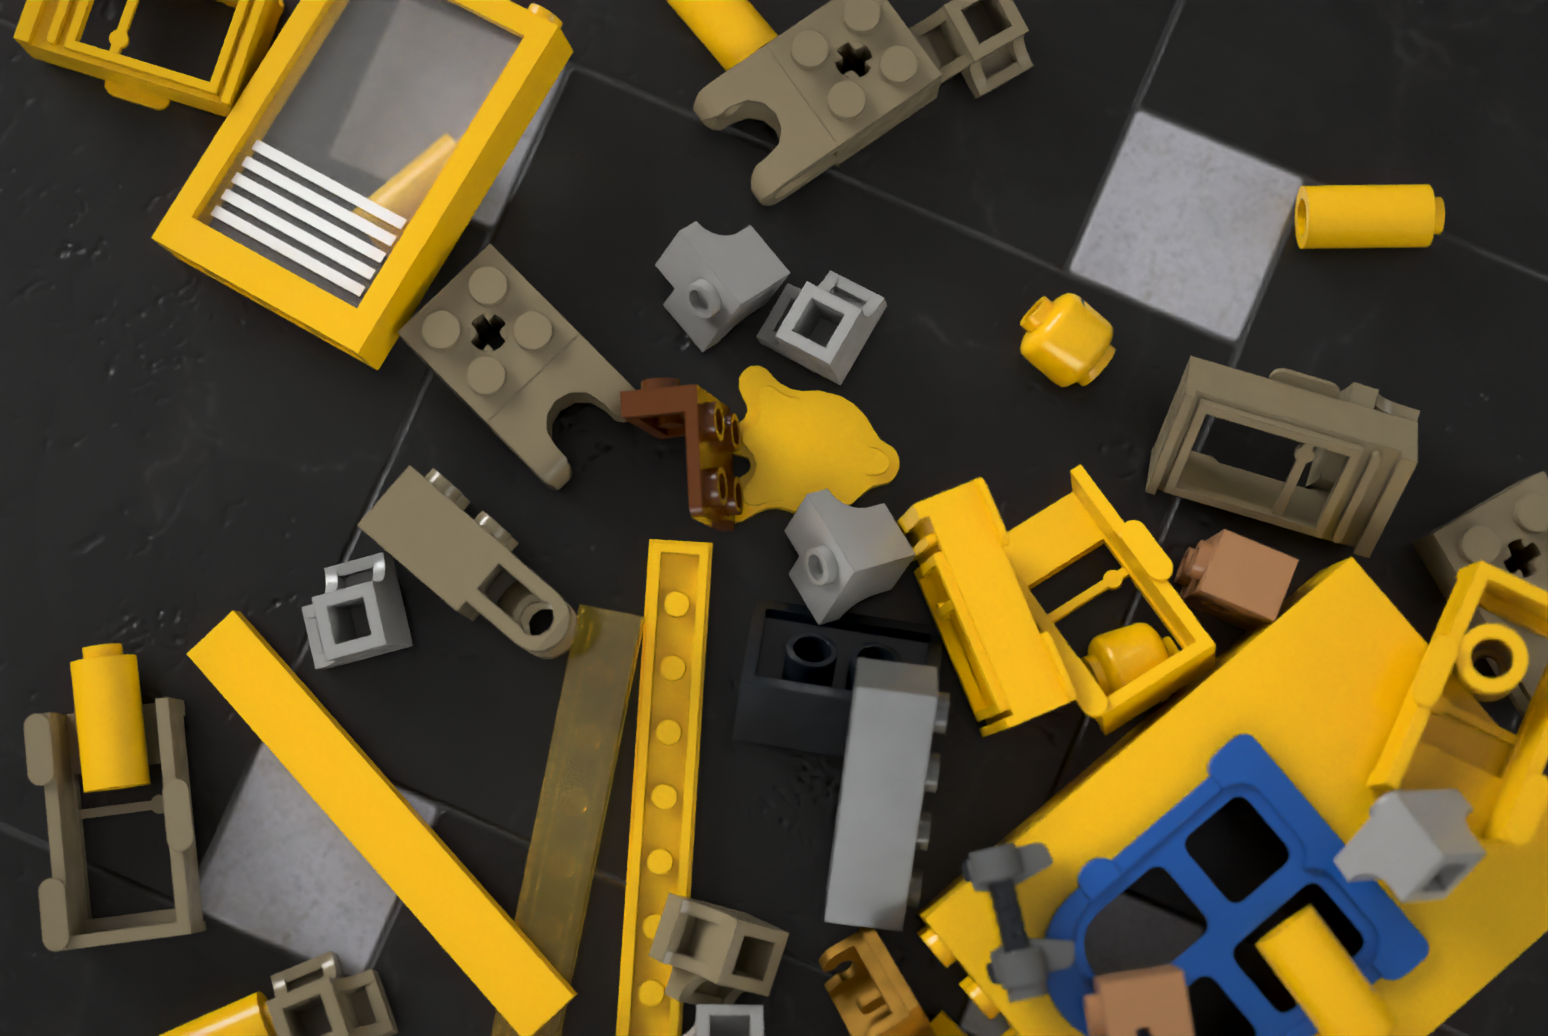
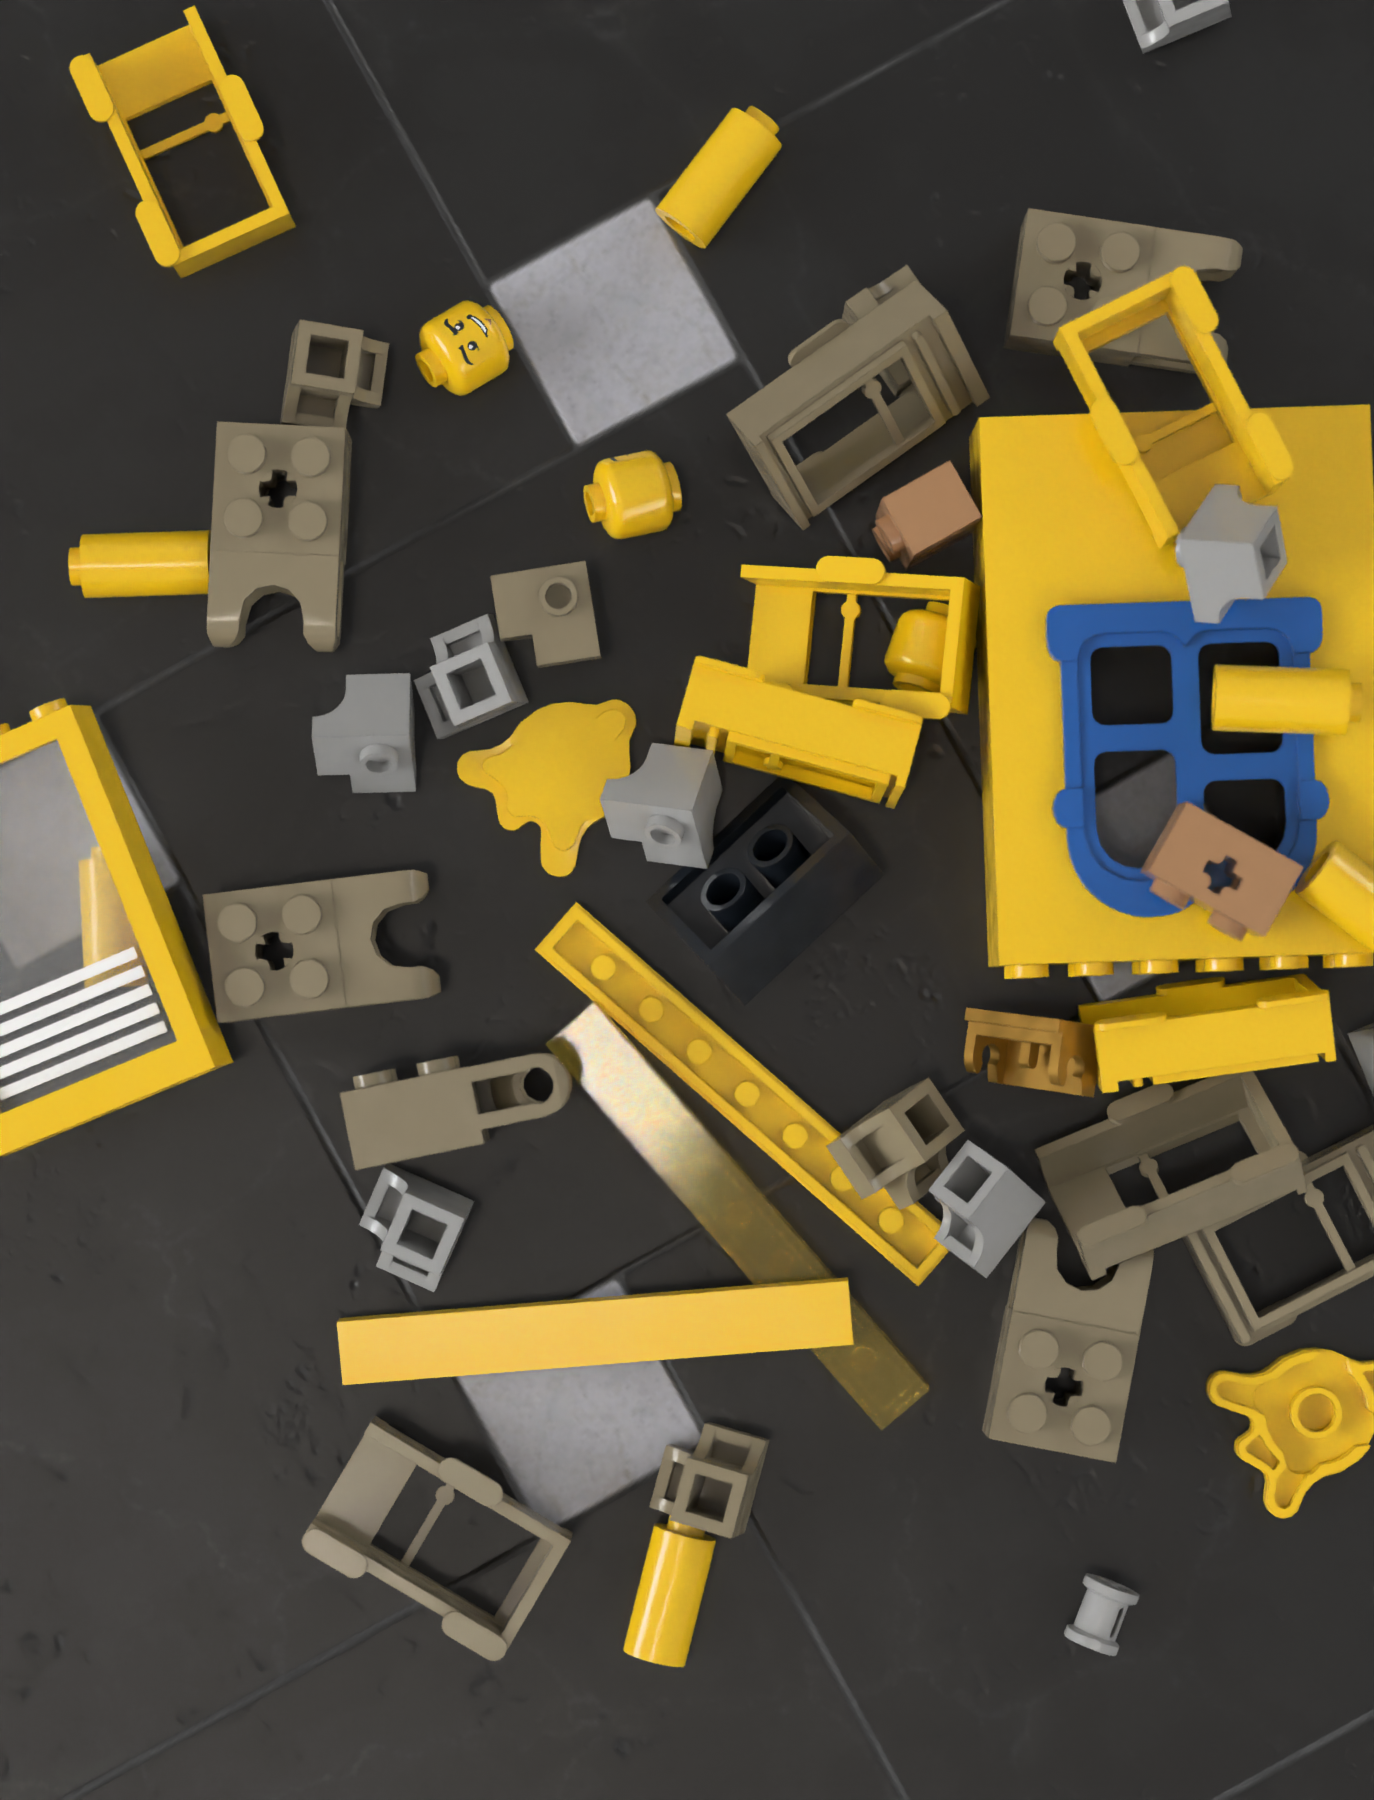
camera: 55 degrees left, 5 degrees up
(109, 719) = (350, 1482): yellow brick -> none
(711, 437) = (496, 839): reddish brown bracket -> none
(882, 794) = (878, 922): brick -> none
(926, 343) = (552, 609): none -> dark tan brick
(1021, 960) = (1086, 917): dark grey piece -> none
(1076, 123) = (464, 347): none -> yellow head
(1500, 645) = (1120, 379): yellow brick -> none

